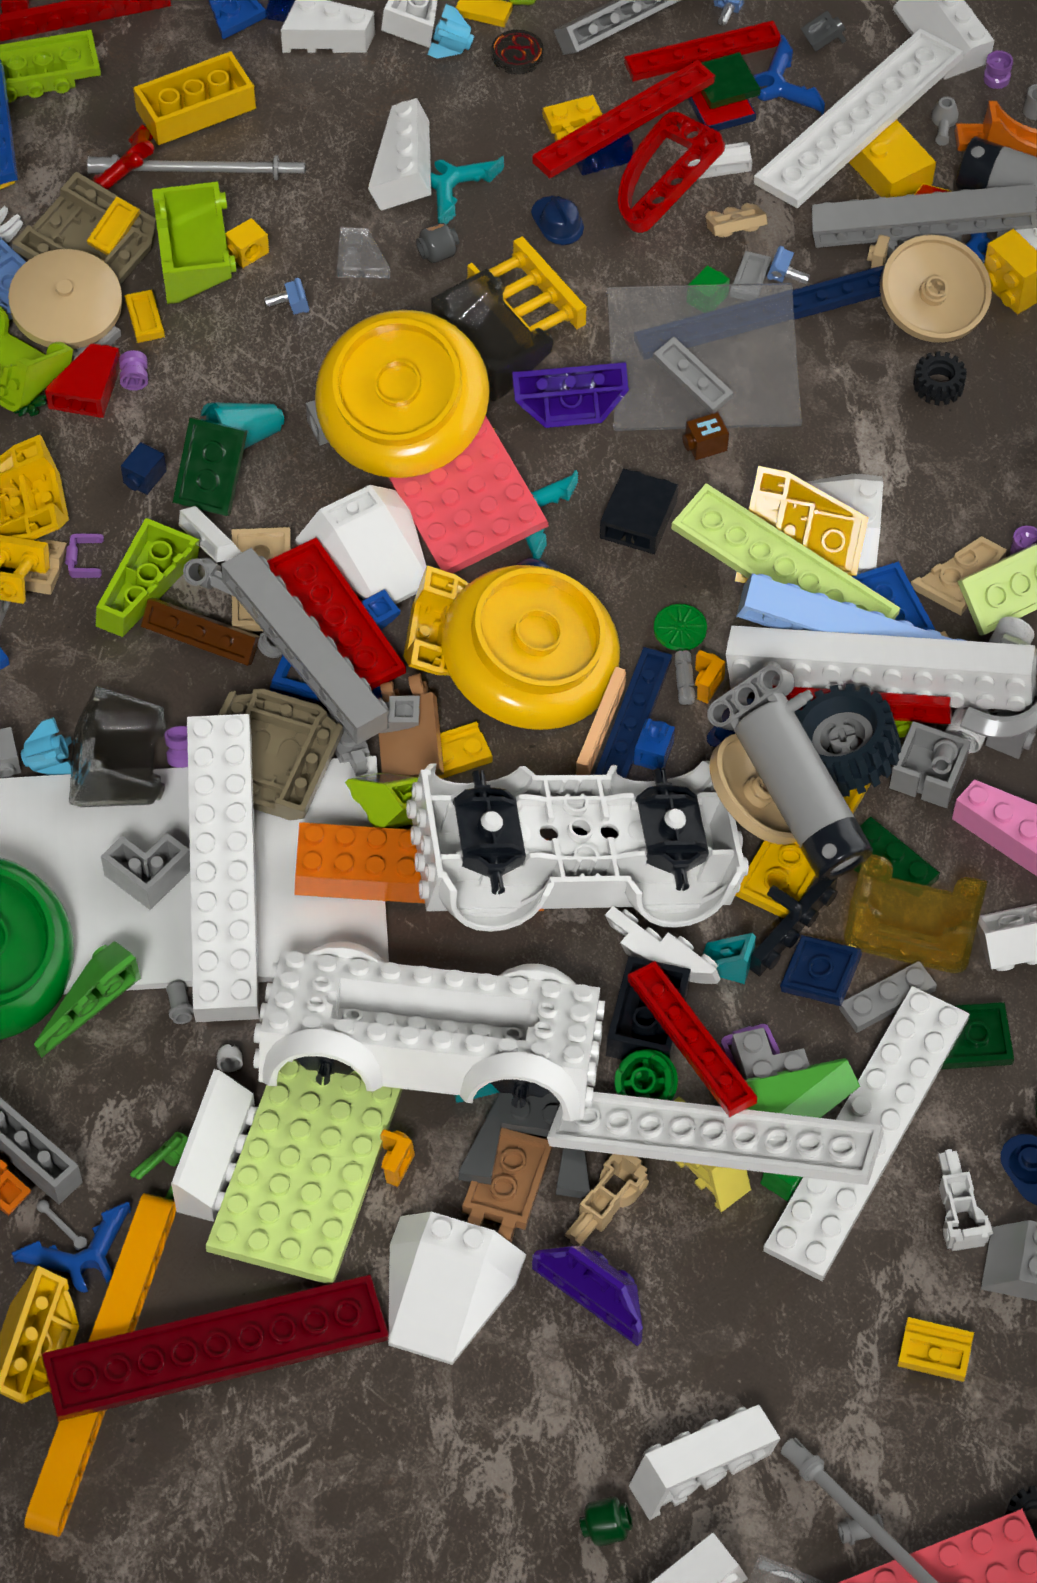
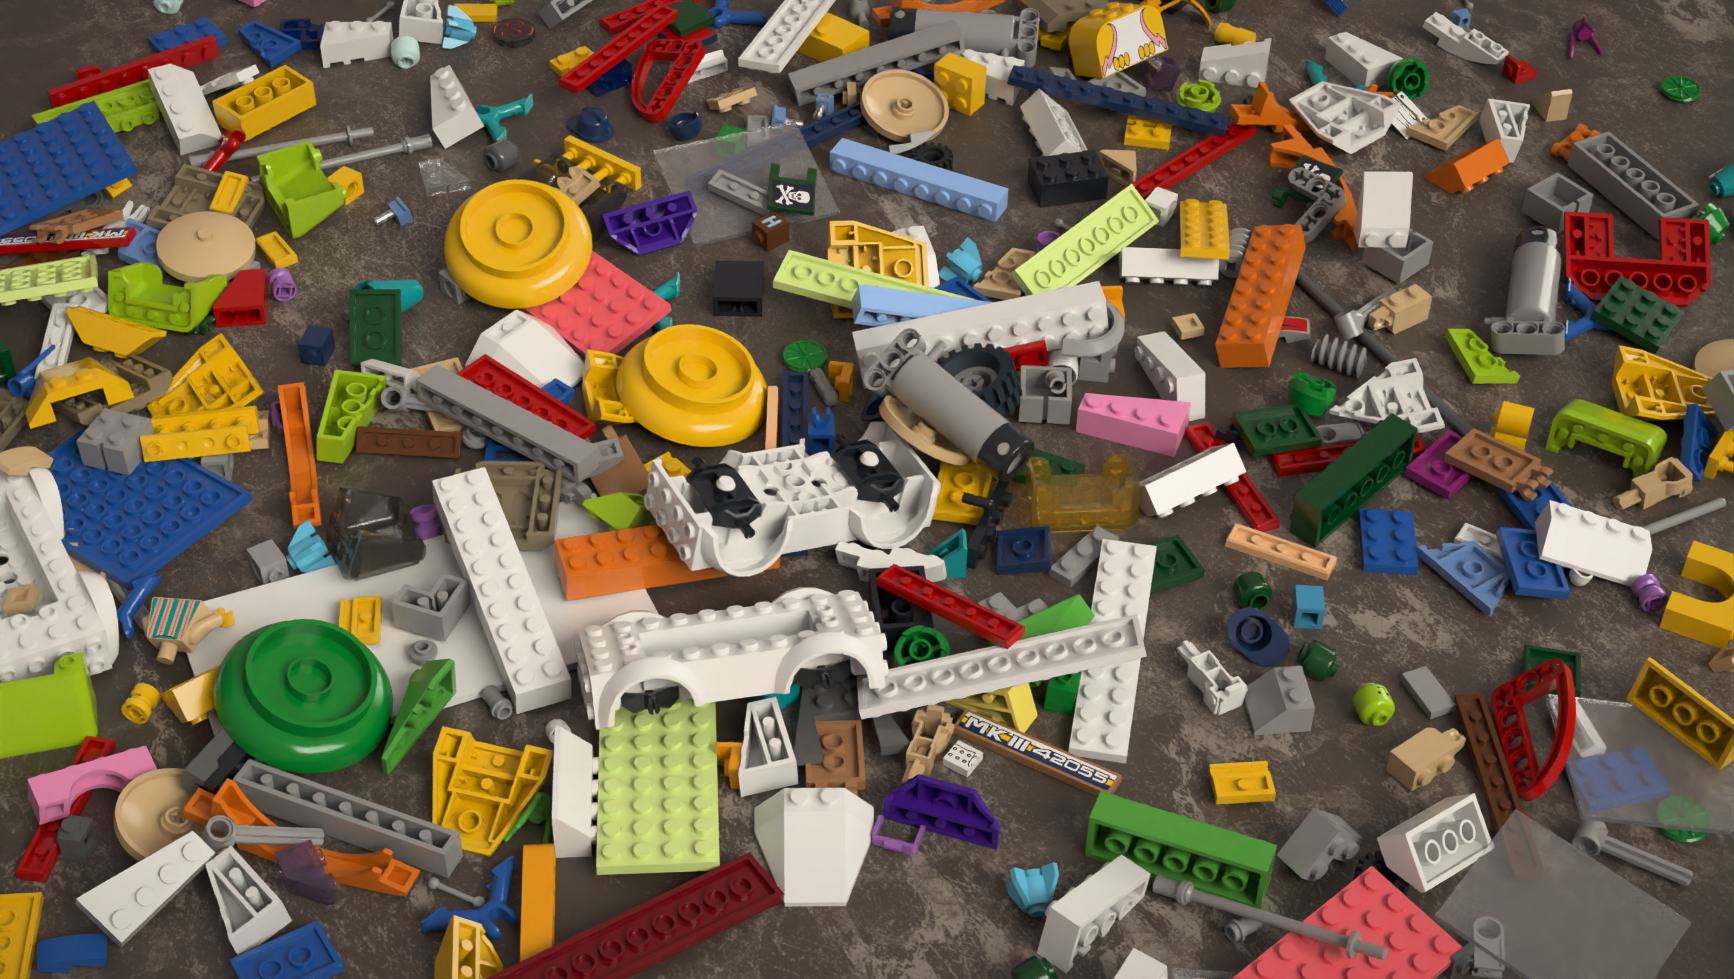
camera: 20 degrees left, 15 degrees down
(70, 859) = (362, 618): none -> yellow plate
(87, 571) = (300, 454): none -> orange slope
(102, 87) = (184, 108): none -> white slope
(124, 1111) = (483, 787): none -> yellow wedge
(125, 925) = (423, 651): none -> light grey plate
(165, 54) = (231, 79): none -> white wing
(336, 199) = (407, 146): none -> light grey bar
(380, 55) = (405, 52): none -> light aqua head
(434, 1152) = (766, 750): none -> white wedge
(494, 324) = (579, 186): none -> tan plate
(530, 1307) = (895, 844): none -> medium lavender piece
(644, 1223) = (962, 758): none -> white tile
(650, 1415) = (1033, 888): none -> medium azure brick
(665, 249) = (685, 125): none -> dark blue hair
(727, 1242) = (1036, 754): none -> tile
(746, 391) = (791, 194): none -> flag
(825, 1419) = (1181, 849): none -> bright green brick
(840, 262) = (824, 105): none -> medium blue piece
(911, 403) = (919, 179): none -> light blue brick
(912, 546) = (963, 264): none -> medium azure brick
(930, 343) = (914, 140): none -> light grey slope
(981, 1457) = (1317, 842): none -> light grey brick

